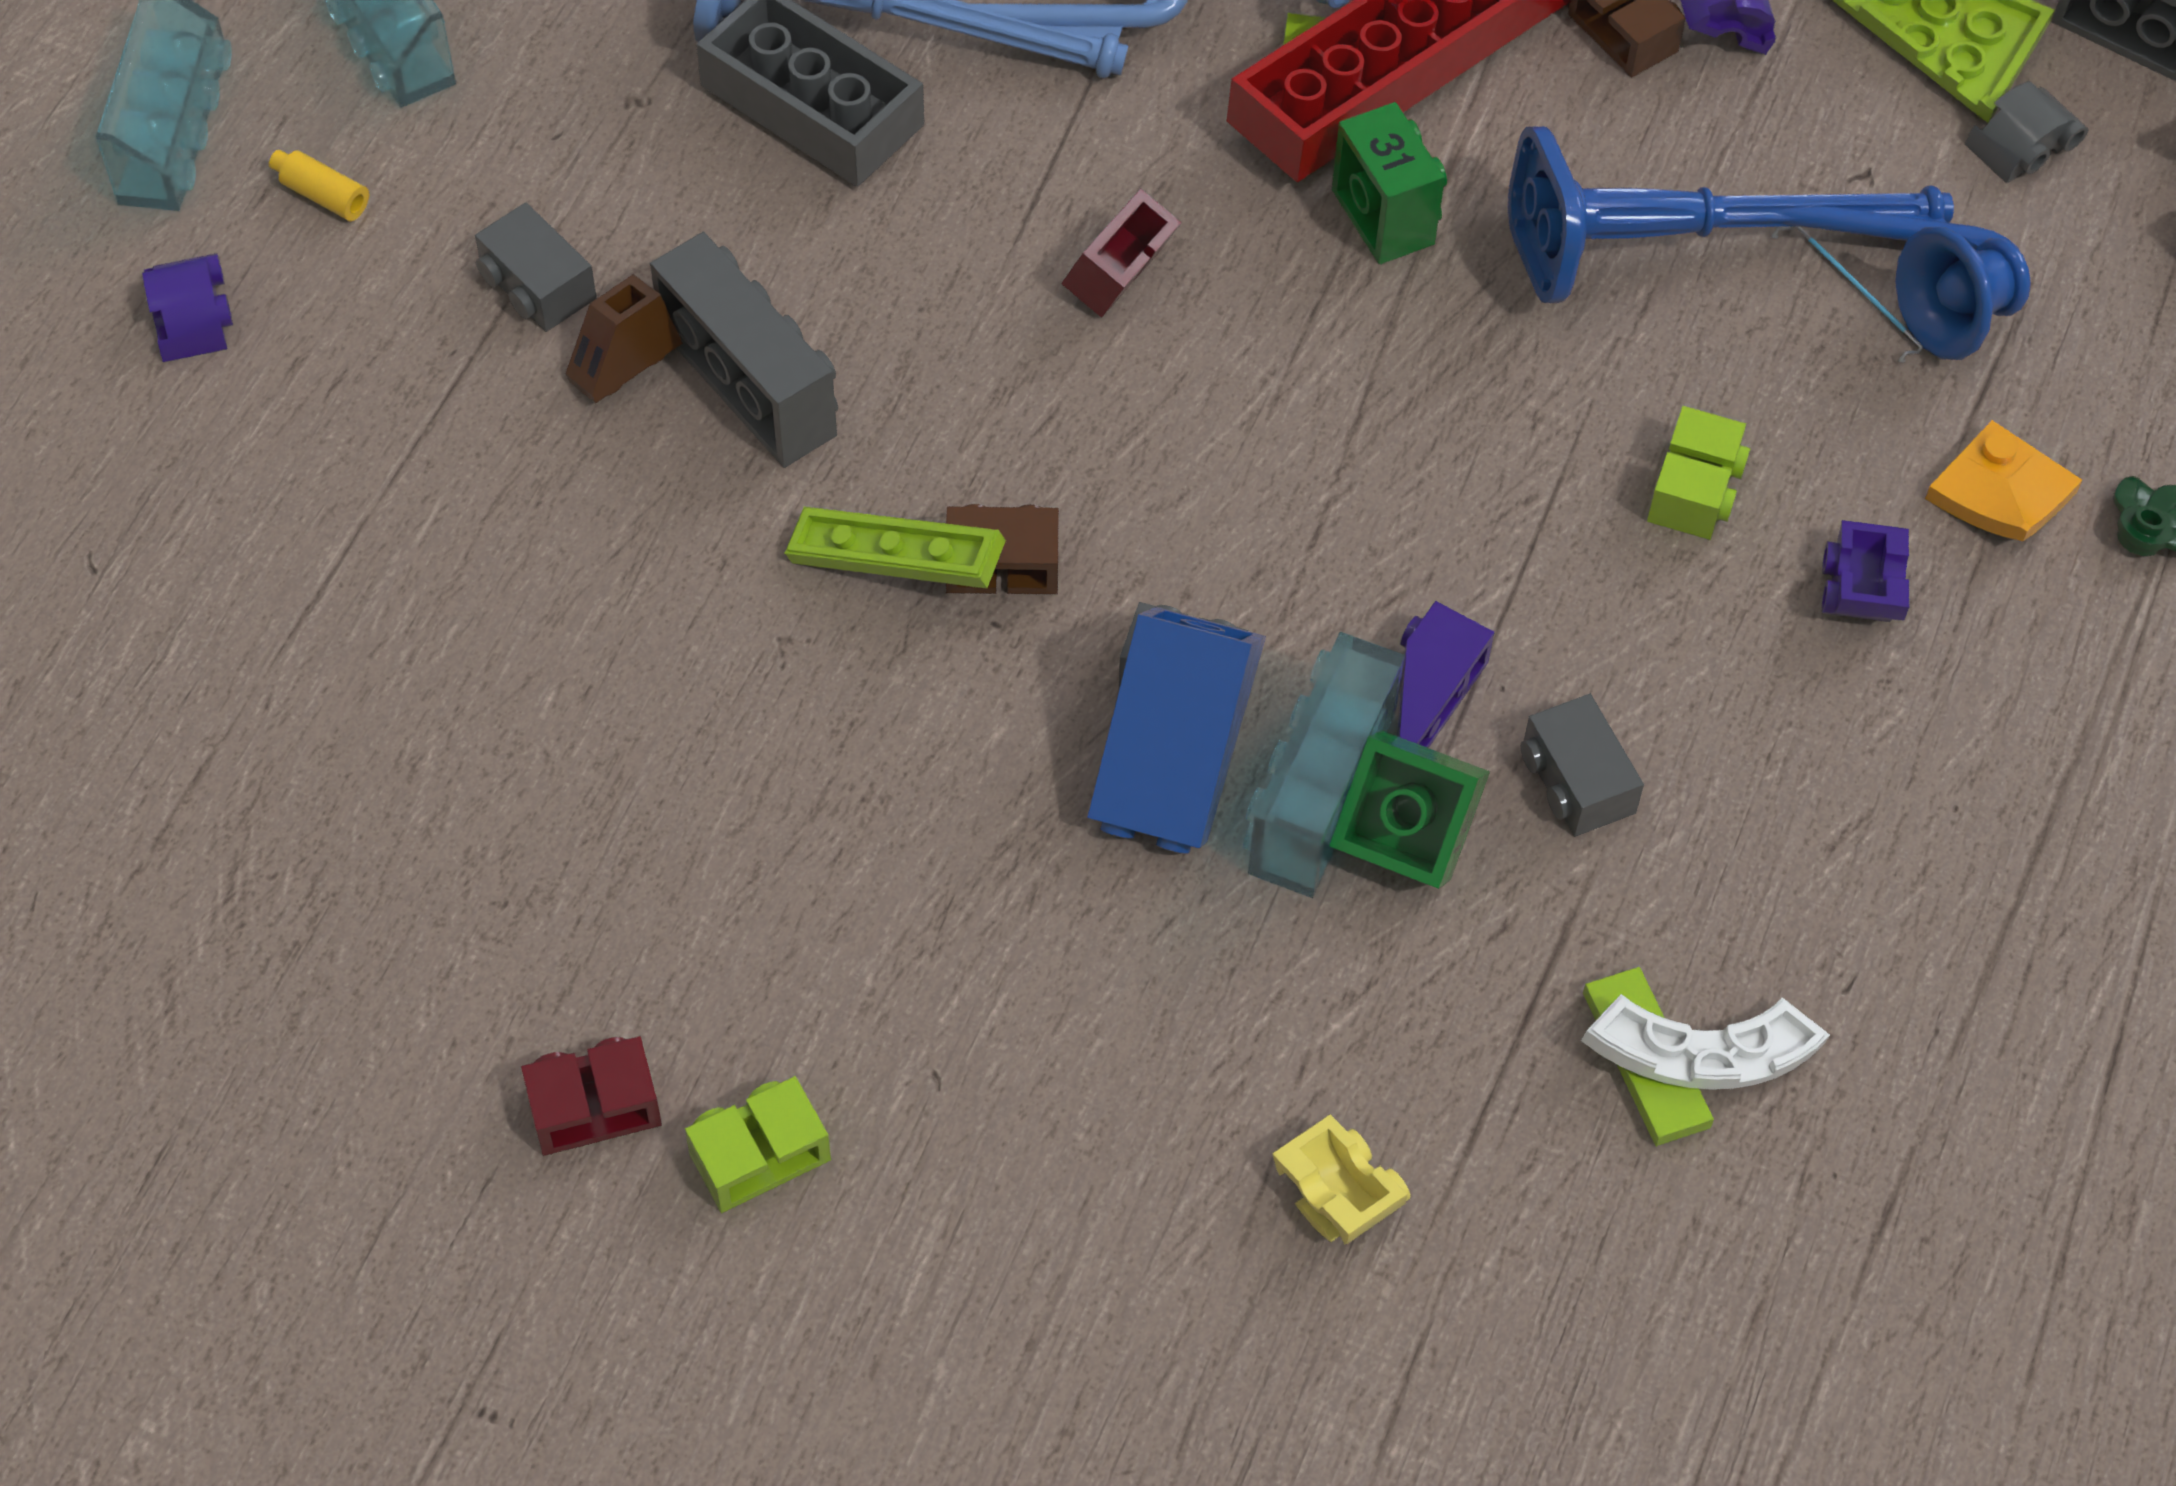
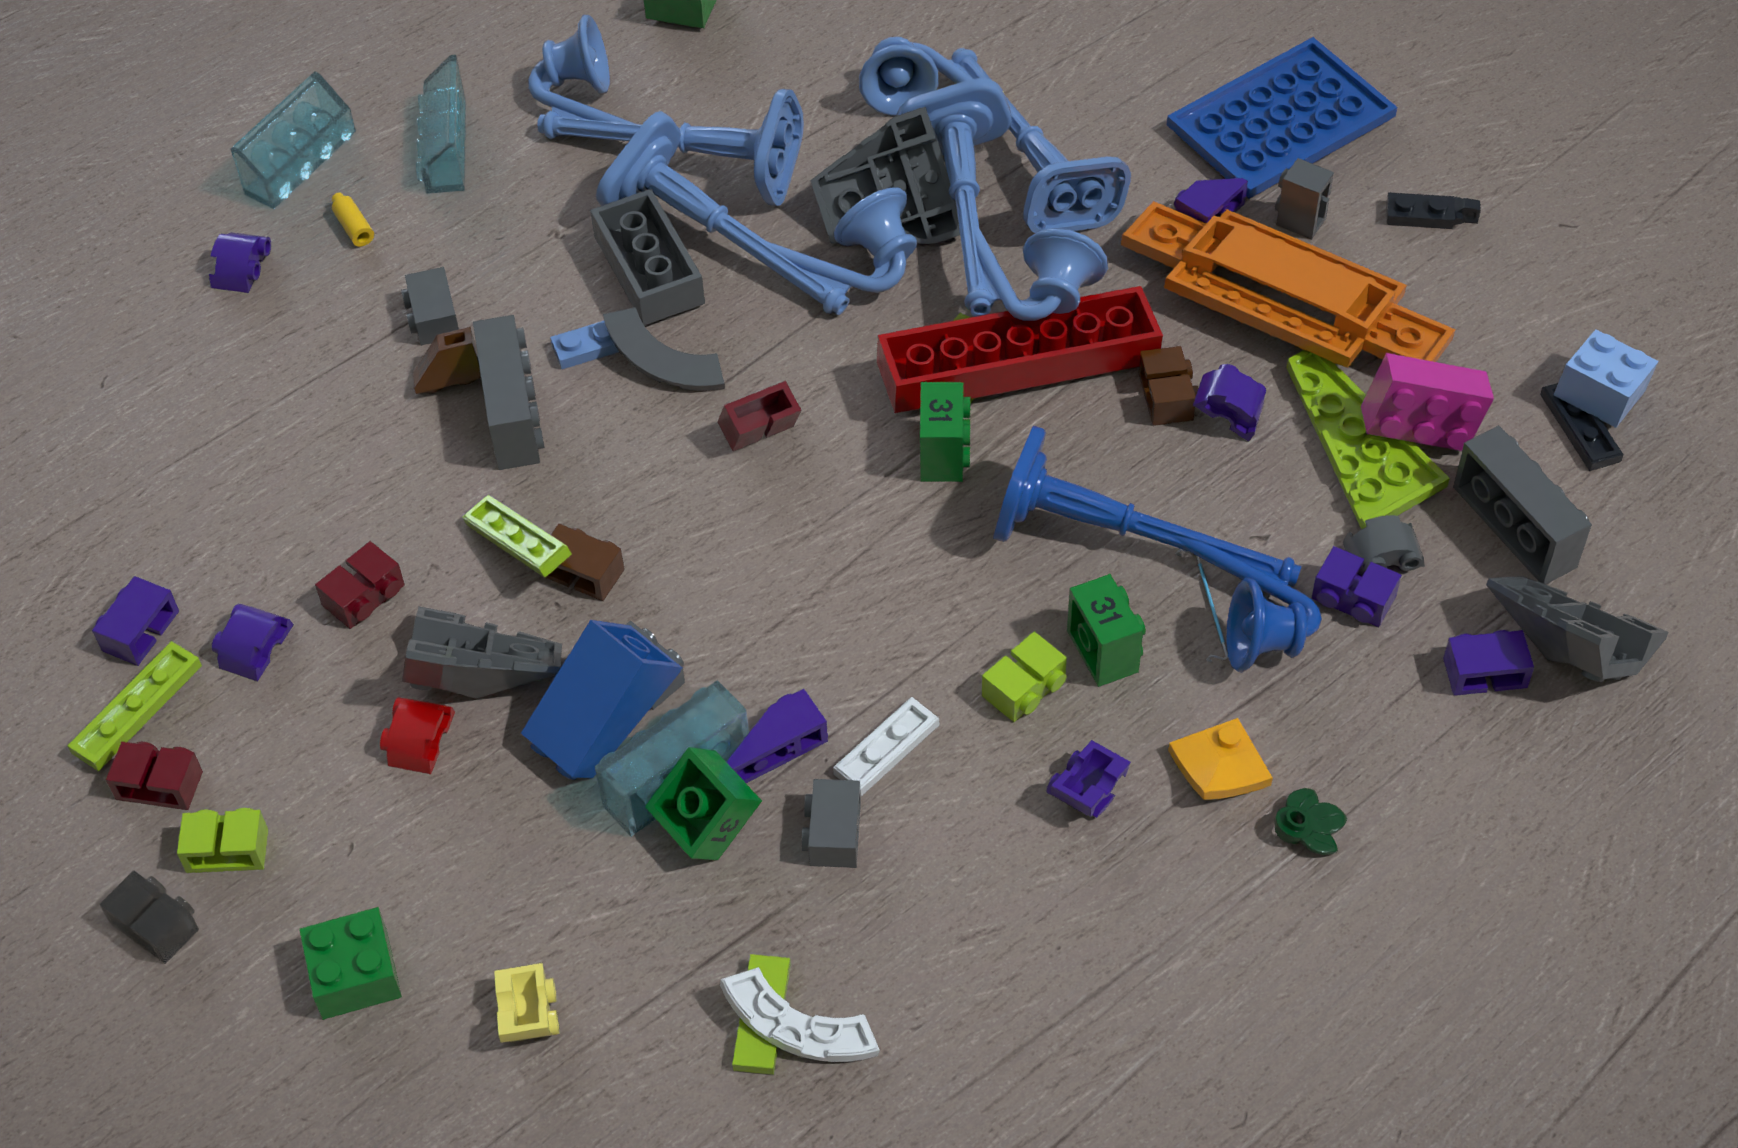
camera: 30 degrees right, 5 degrees down
(403, 878) = (136, 609): none -> dark purple piece
(487, 1011) = (134, 705): none -> lime plate
(595, 850) = (248, 640): none -> dark purple cylinder
(706, 716) = (358, 595): none -> dark red piece
(724, 1294) = (150, 915): none -> clear smoke piece
(795, 240) = (582, 345): none -> medium blue plate
(918, 226) = (658, 360): none -> dark grey tile
(931, 881) = (415, 734): none -> red cylinder
(945, 742) = (474, 659): none -> dark grey wedge
(1061, 1231) = (350, 963): none -> green brick
(1572, 634) = (887, 745): none -> white tile
(1770, 368) = (1105, 629): none -> green brick
(2011, 203) = (1363, 596): none -> dark purple piece

